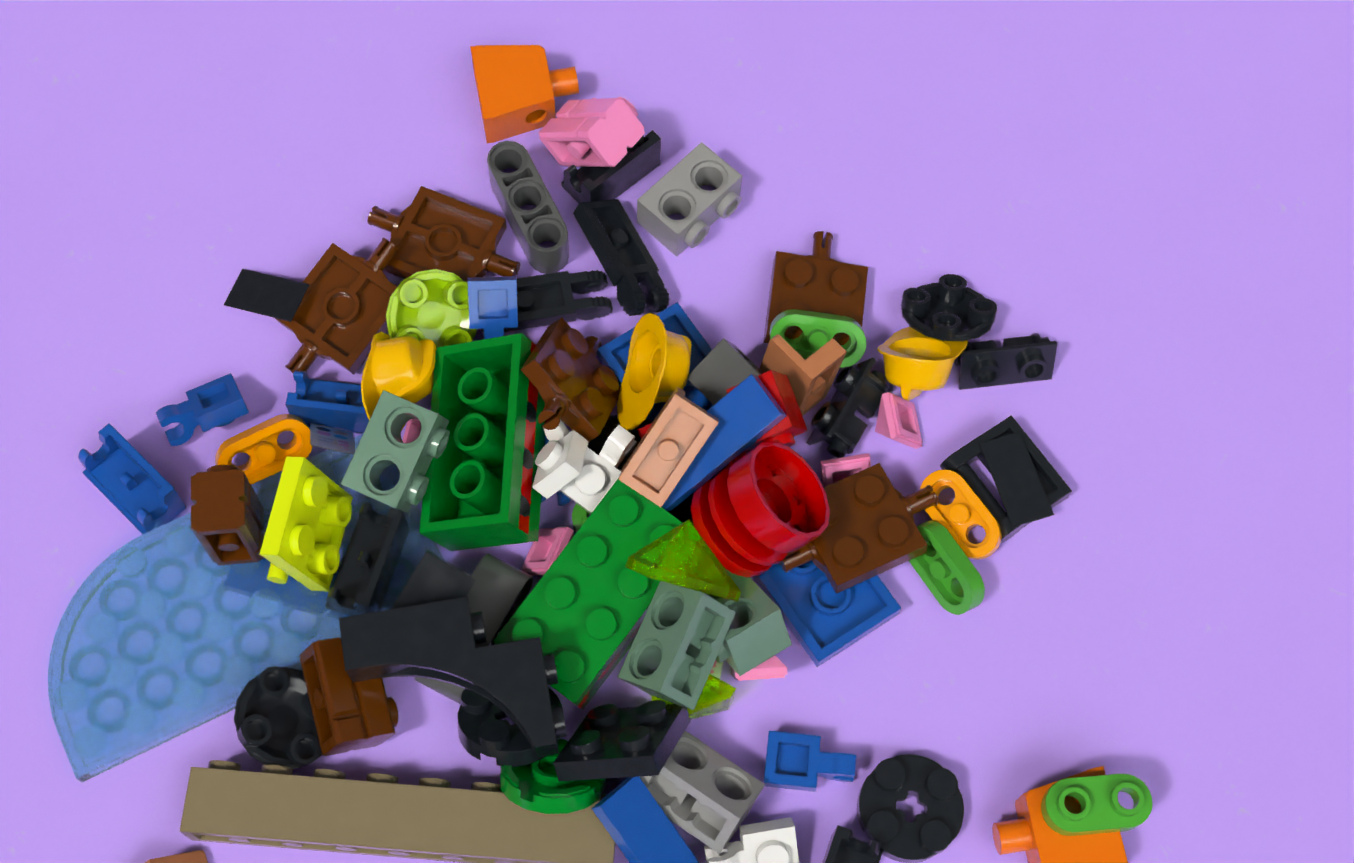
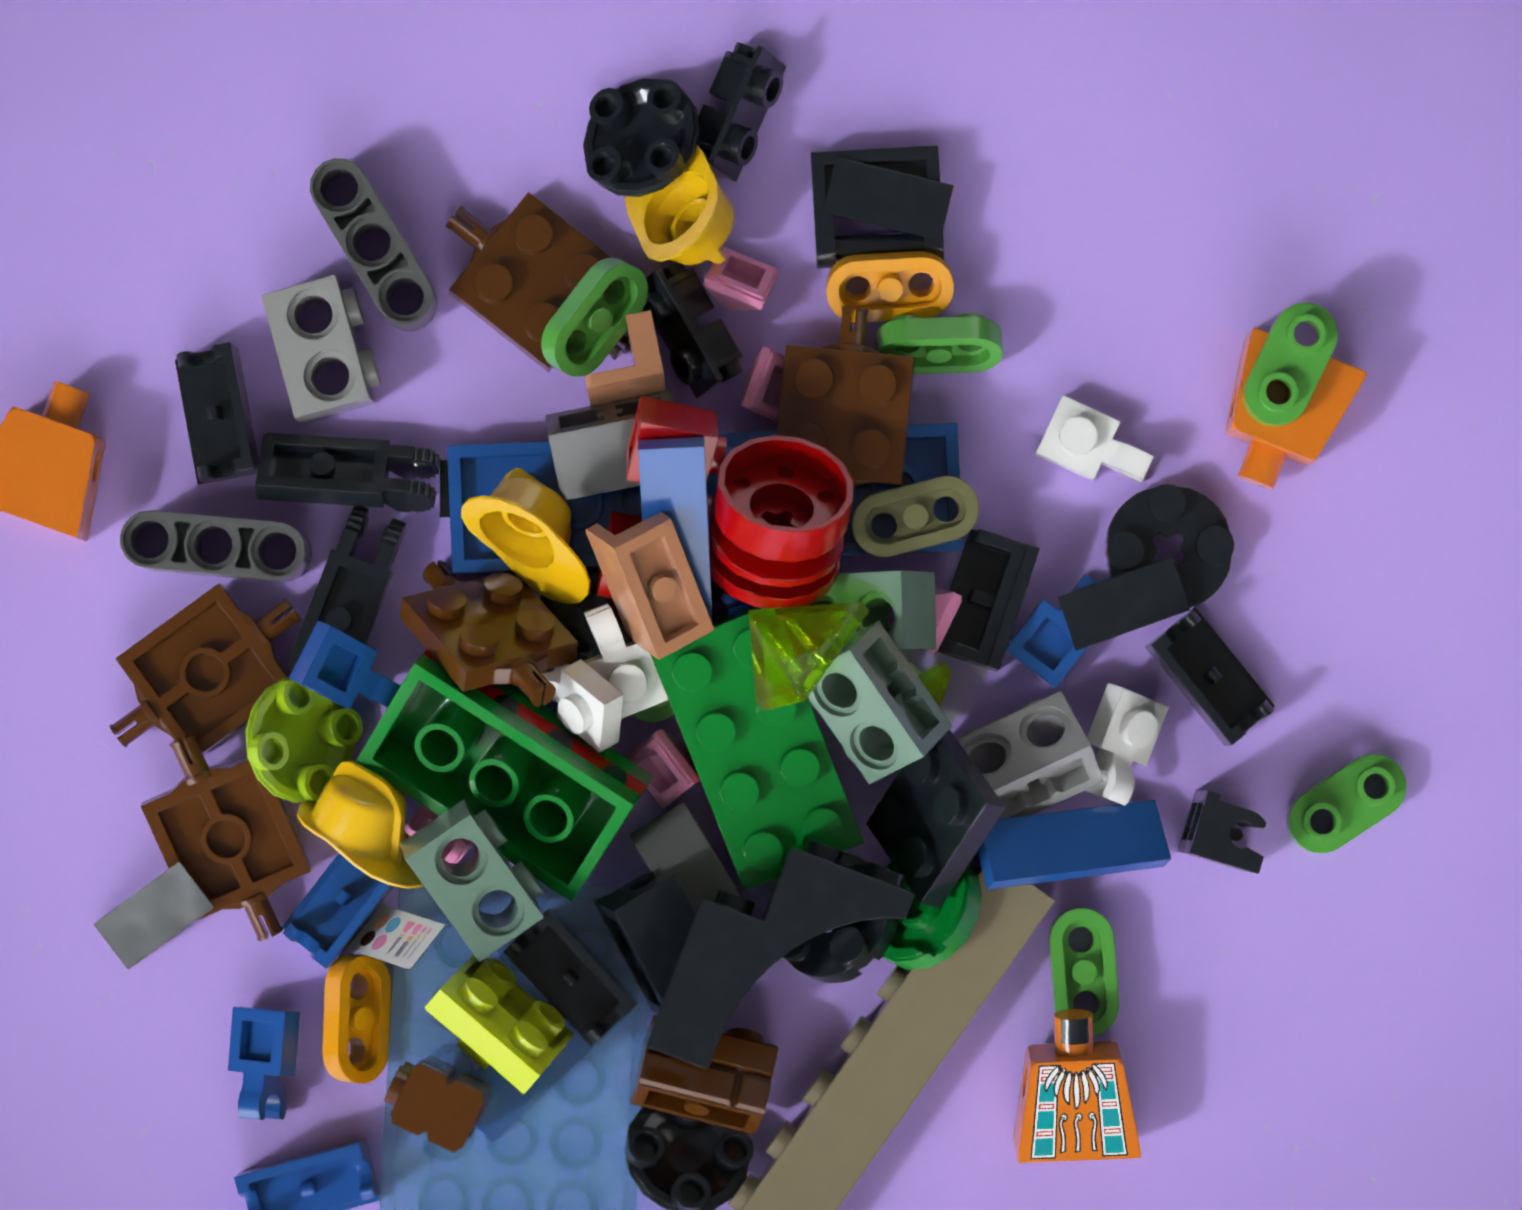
camera: 55 degrees left, 20 degrees up
(592, 132) = (171, 417): bright pink brick -> none
(778, 178) = (352, 222): none -> dark grey beam
(796, 701) = (992, 588): none -> black hinge
(824, 610) = (914, 516): none -> olive plate
(853, 793) = (1124, 603): none -> black sticker
(946, 705) = (1083, 441): none -> white plate

